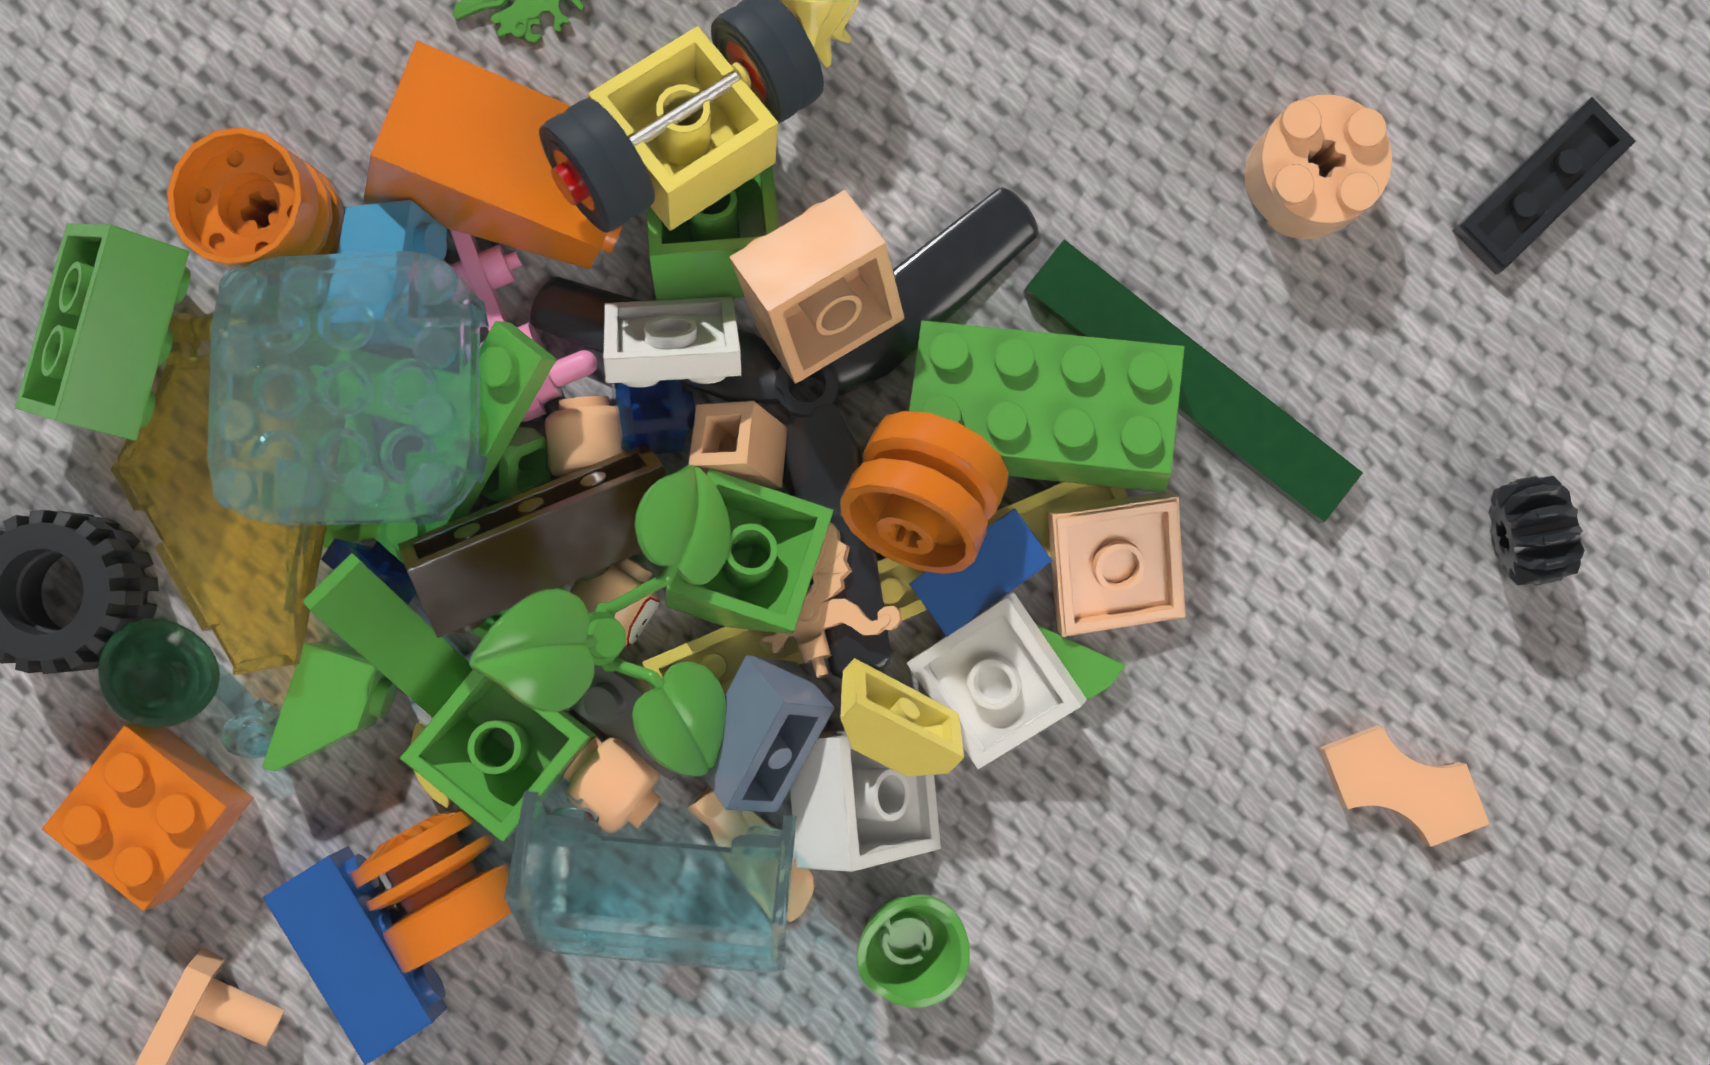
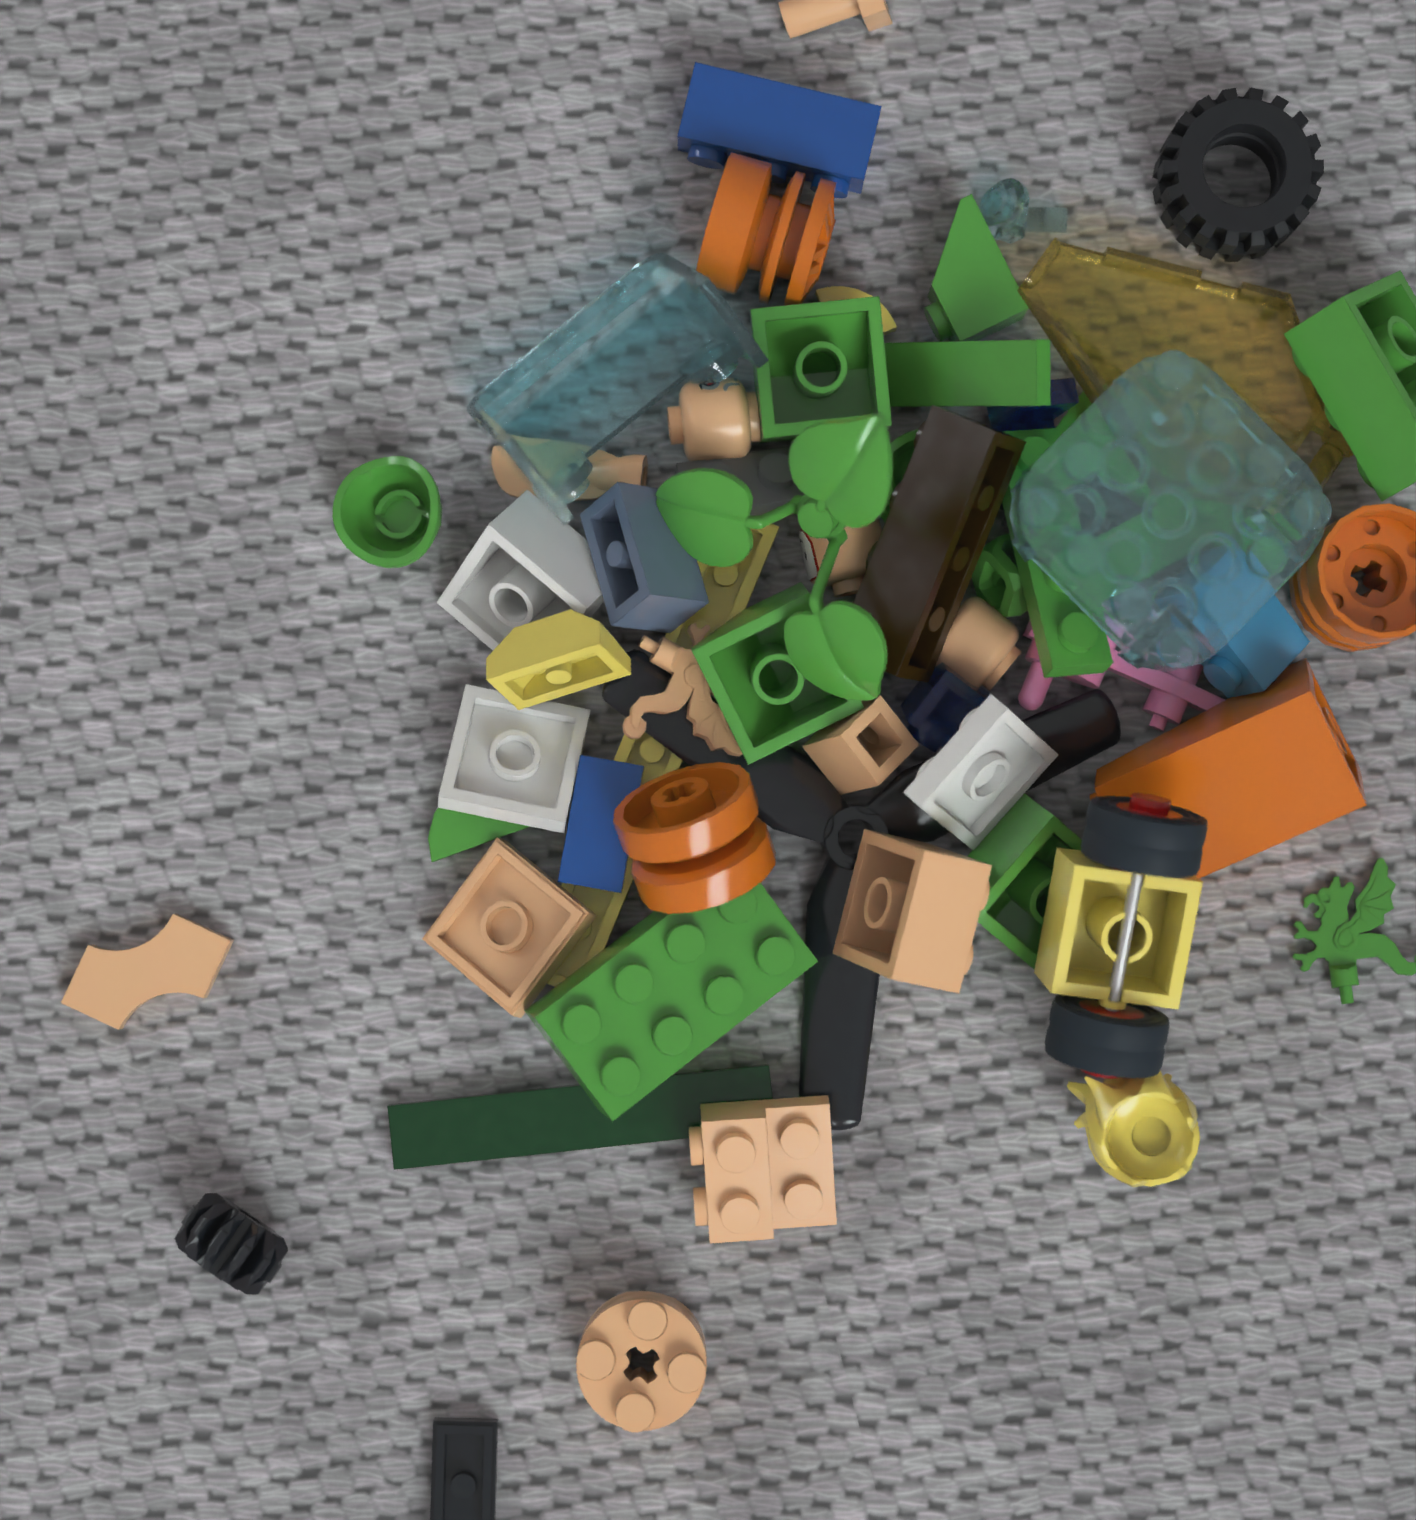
camera: 135 degrees right, 0 degrees up
(147, 814) = (1021, 83): orange brick -> none
(157, 673) = (1109, 186): clear green helmet -> none
(1100, 219) = (763, 1167): none -> light nougat plate

